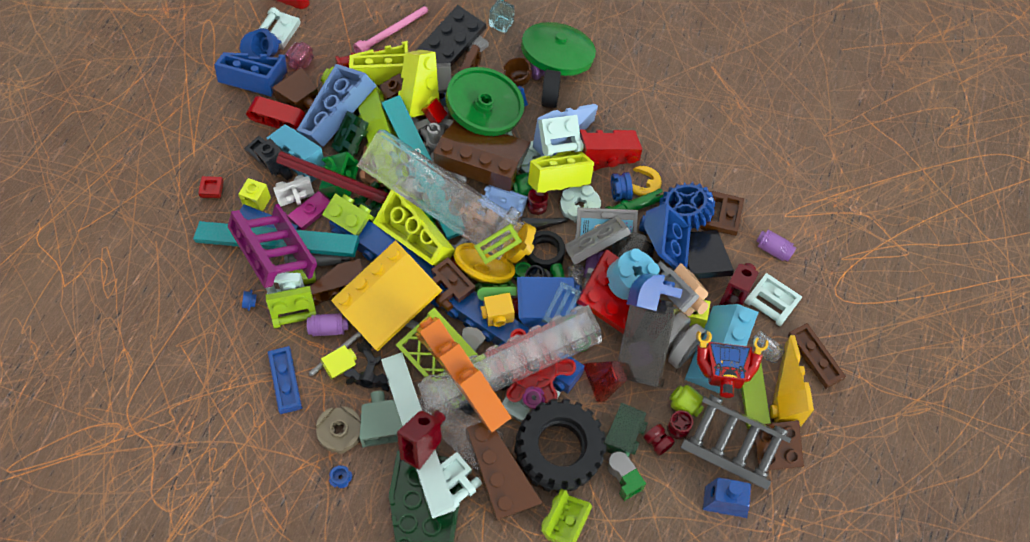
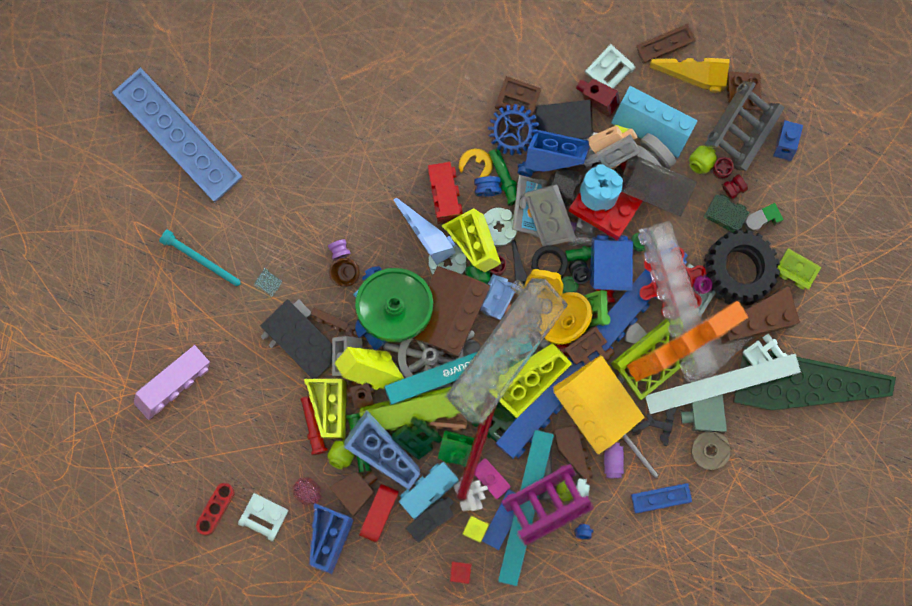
camera: 85 degrees left, 20 degrees up
(260, 42) = (293, 531): blue piece -> none
(290, 301) = (598, 490): lime plate -> none
(336, 472) = (746, 449): blue plate -> none
(339, 361) = (652, 449): neon yellow brick -> none
(347, 215) = (510, 438): lime bracket -> none
(362, 46) = (296, 426): bright pink piece -> none
(420, 437) = (742, 380): dark red torso -> none
(434, 111) = (398, 354): red slope -> none
(498, 310) = (619, 308): yellow brick -> none
(513, 234) = (556, 304): lime tile -> none
(546, 318) = (621, 259): clear light blue tile -> none
(551, 88) = (371, 240): black tyre -> none
(558, 48) = (317, 228): green dish -> none
(560, 128) = (439, 237): light aqua plate -> none
(604, 378) = (684, 222): clear red wing -> none
(647, 290) = (626, 176): brick -> none
(728, 364) = (685, 119): torso -> none
(755, 399) = (698, 102): lime tile -> none
(774, 350) = (655, 82): clear cone -> none
(775, 245) = (556, 56): medium lavender head -> none

